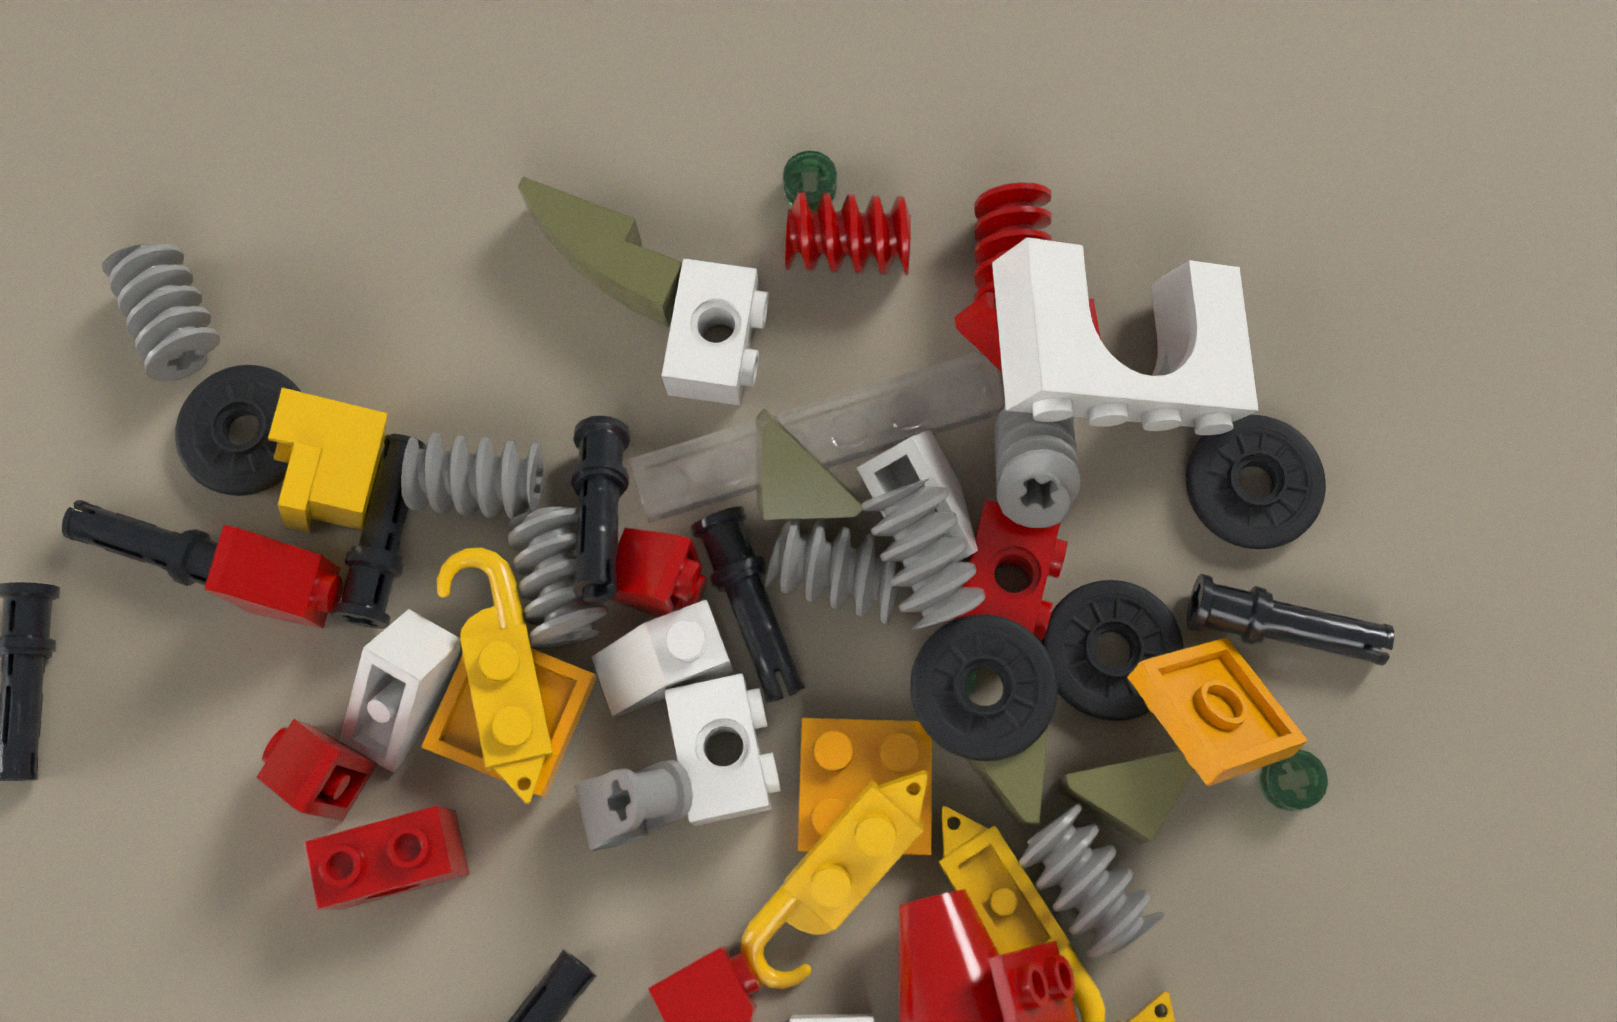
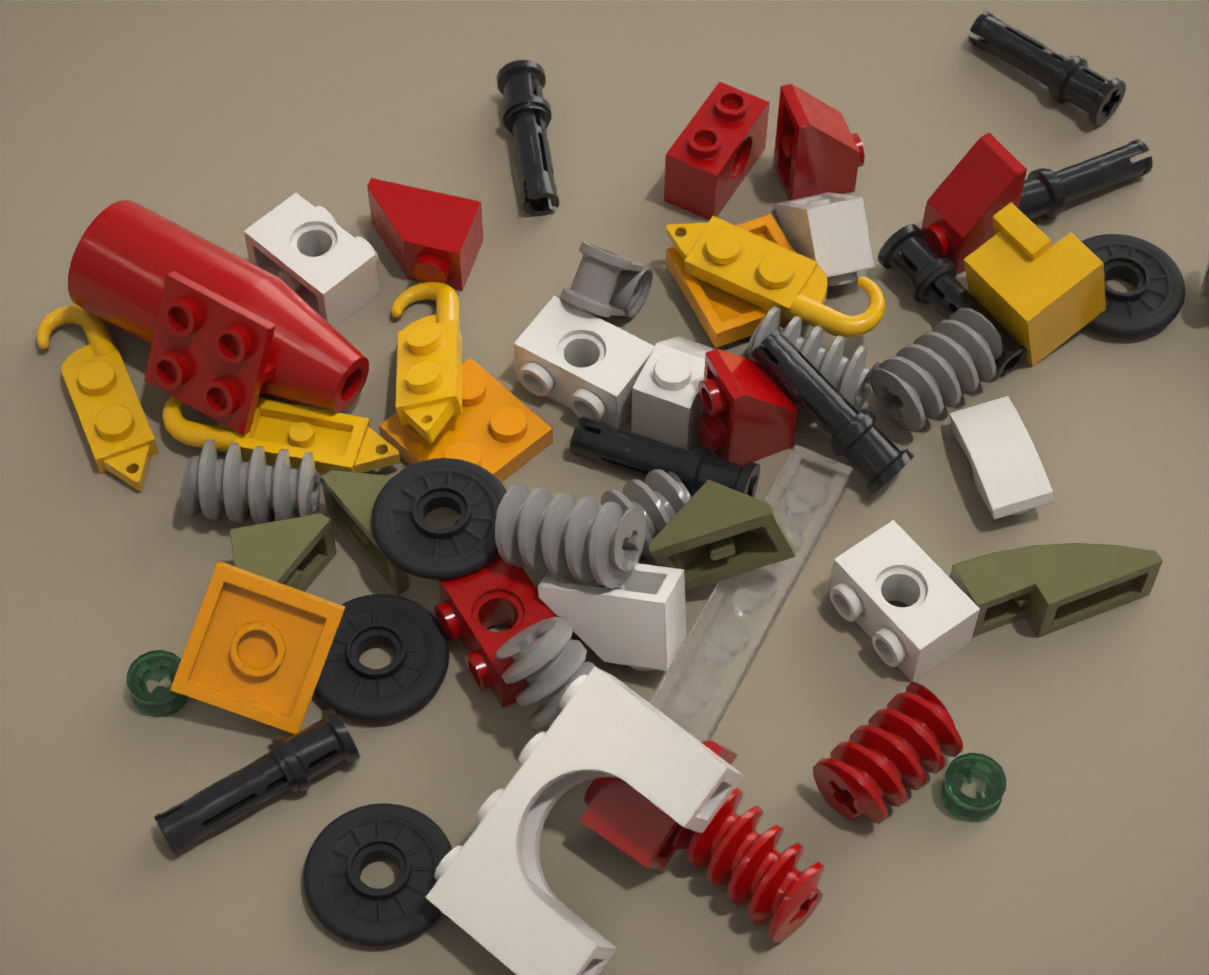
camera: 130 degrees right, 20 degrees down
(512, 371) = (1002, 457): none -> white slope

